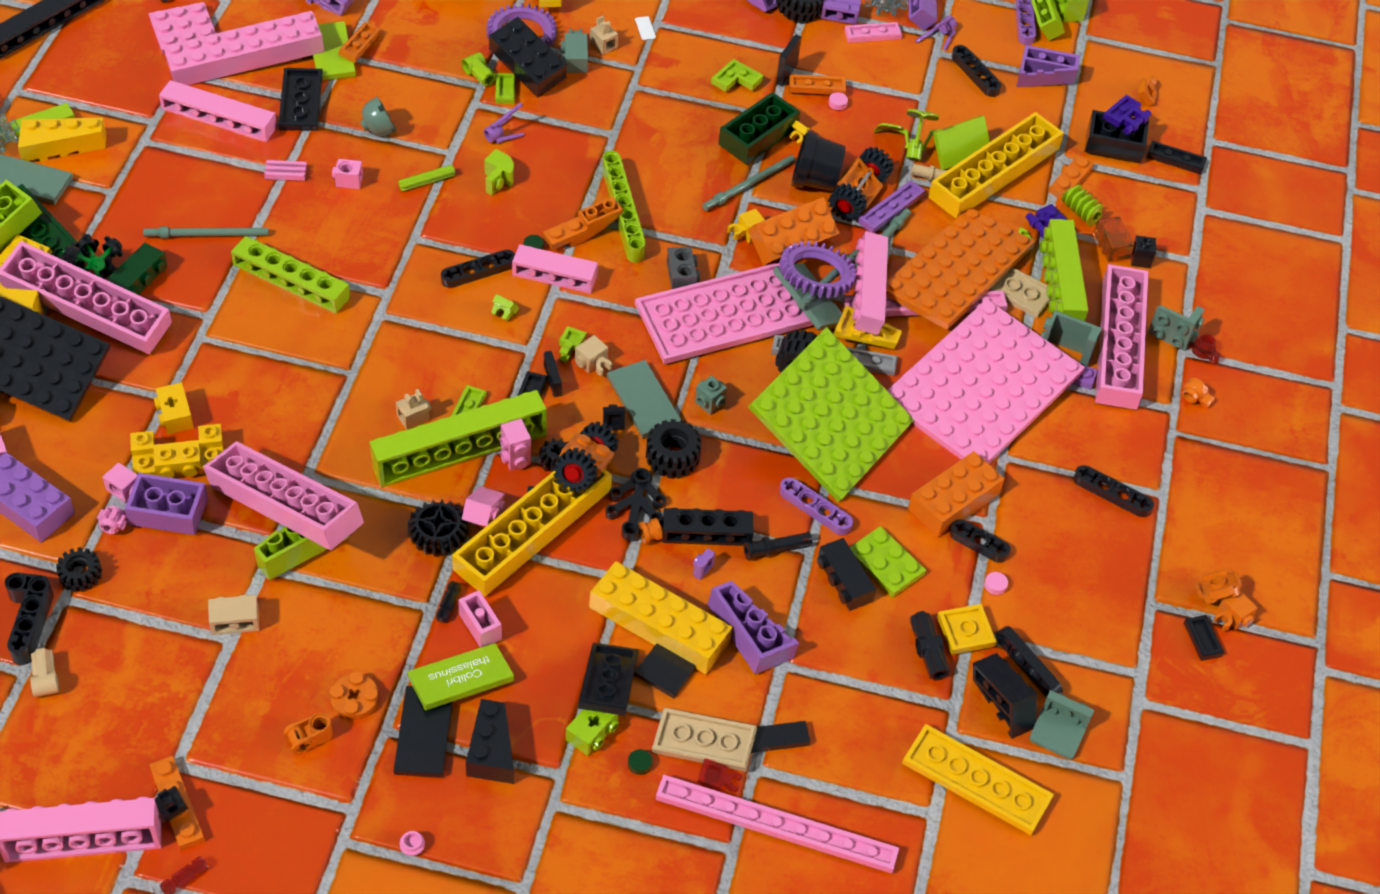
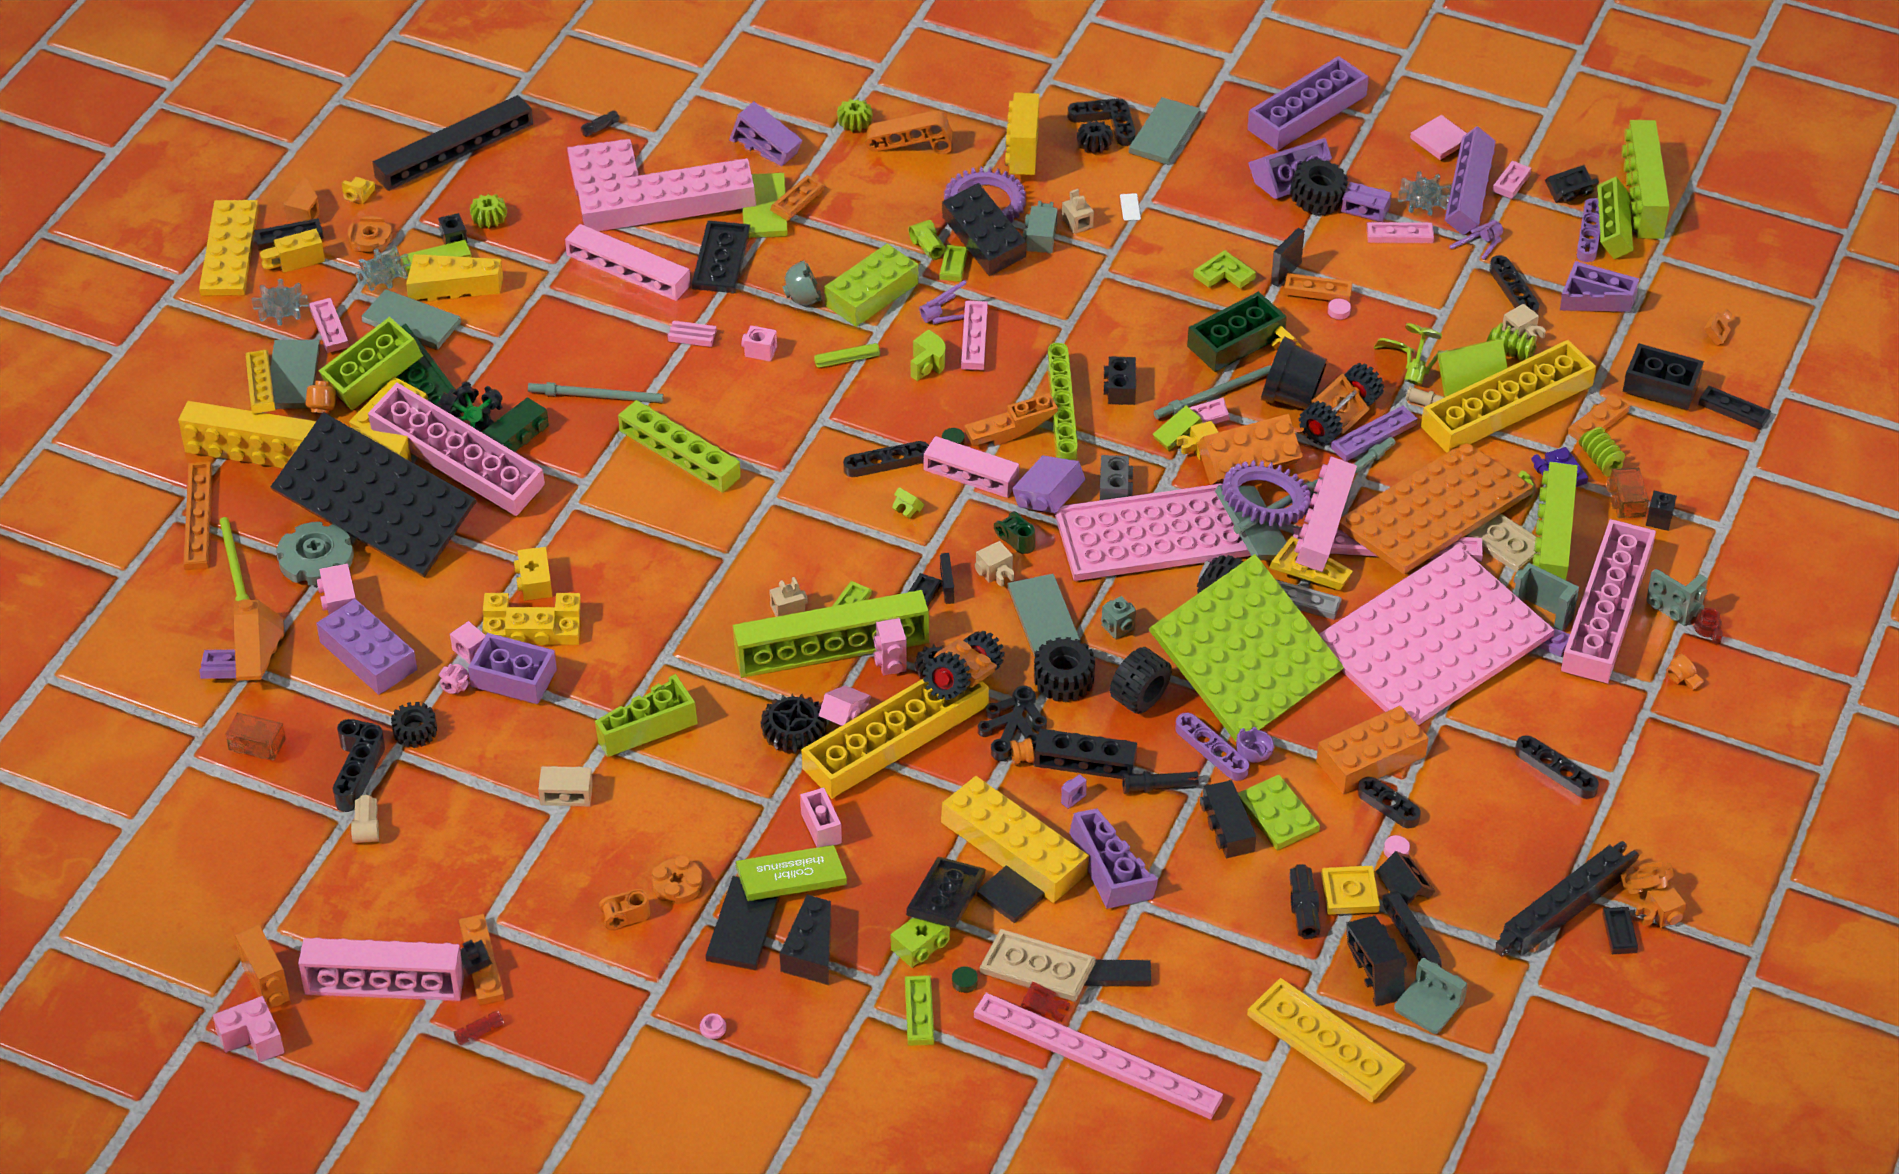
camera: 15 degrees right, 5 degrees down
(54, 93) = (452, 229): none -> black brick
(85, 74) = (488, 210): none -> lime gear
(284, 495) = (634, 670): bright pink brick -> none
(438, 113) = (871, 285): none -> lime brick
(448, 601) = (791, 799): black axle -> none
(535, 150) = (974, 335): none -> bright pink plate
(569, 340) = (970, 545): lime plate -> none
(603, 799) = (919, 1010): none -> lime tile
(605, 325) = (1016, 532): none -> dark green piece
(614, 416) = (1005, 630): black tile -> none
(626, 278) = (1048, 484): none -> medium lavender brick
(670, 179) = (1121, 380): none -> black brick
(725, 216) = (1176, 427): none -> lime tile
(744, 452) = (1140, 680): none -> black tyre
(748, 201) = (1212, 411): none -> bright pink plate
(854, 501) = (1254, 745): none -> medium lavender hair
(991, 101) = (1524, 320): none -> tan brick
(991, 118) = (1513, 343): none -> lime piece
(1010, 611) = (1403, 875): none -> black panel
(1123, 111) = (1672, 347): dark purple plate -> none
(1153, 616) = (1565, 900): none -> black hinge

